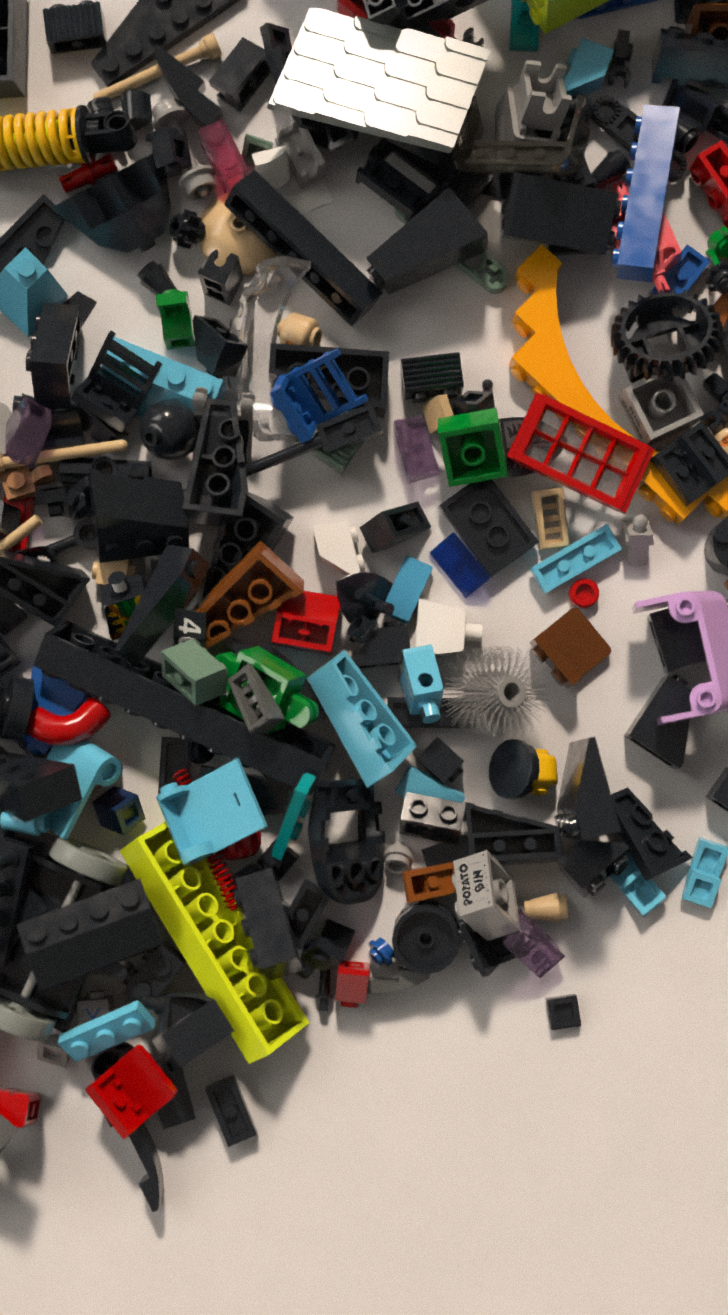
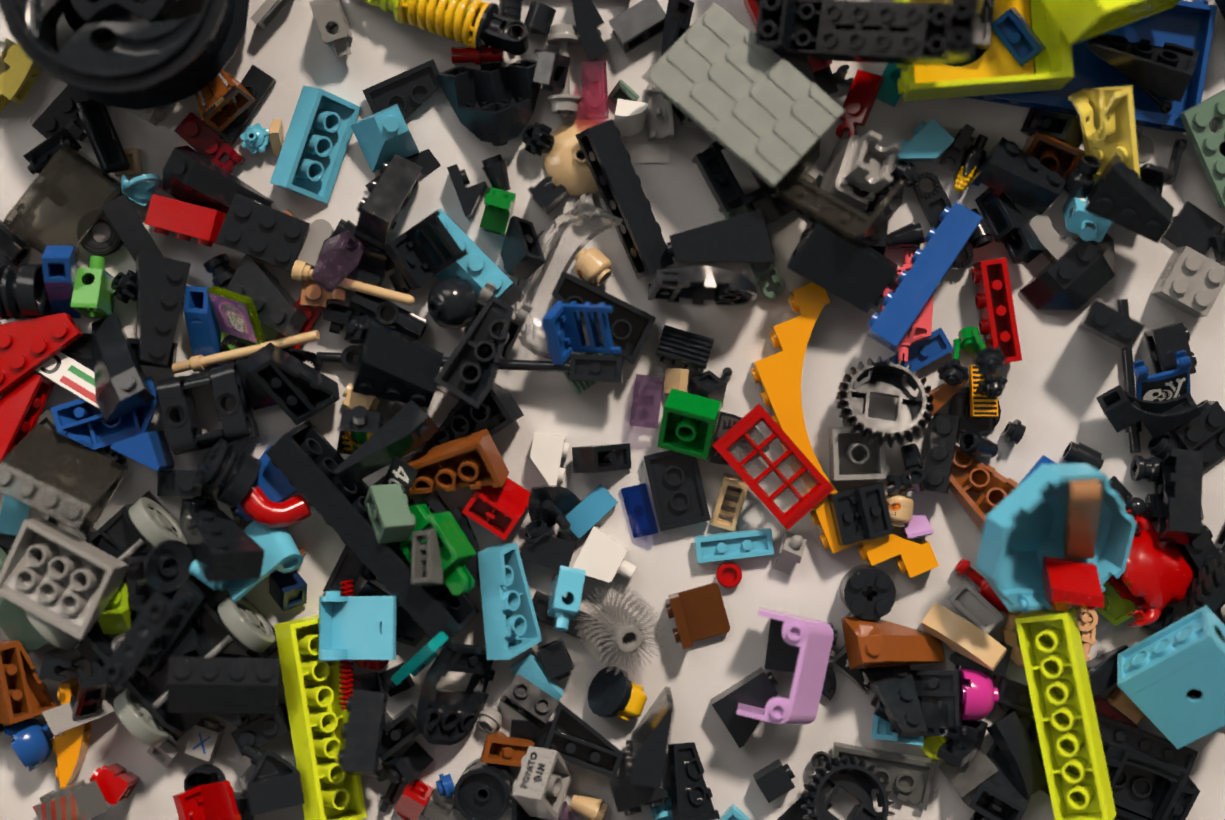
camera: 25 degrees right, 5 degrees up
(106, 1031) = (207, 758): medium azure plate -> none
(138, 315) = (470, 196): none -> black slope
(446, 294) = (702, 284): none -> black slope
(501, 62) = (859, 102): none -> red plate
(640, 70) = (970, 164): none -> black piece

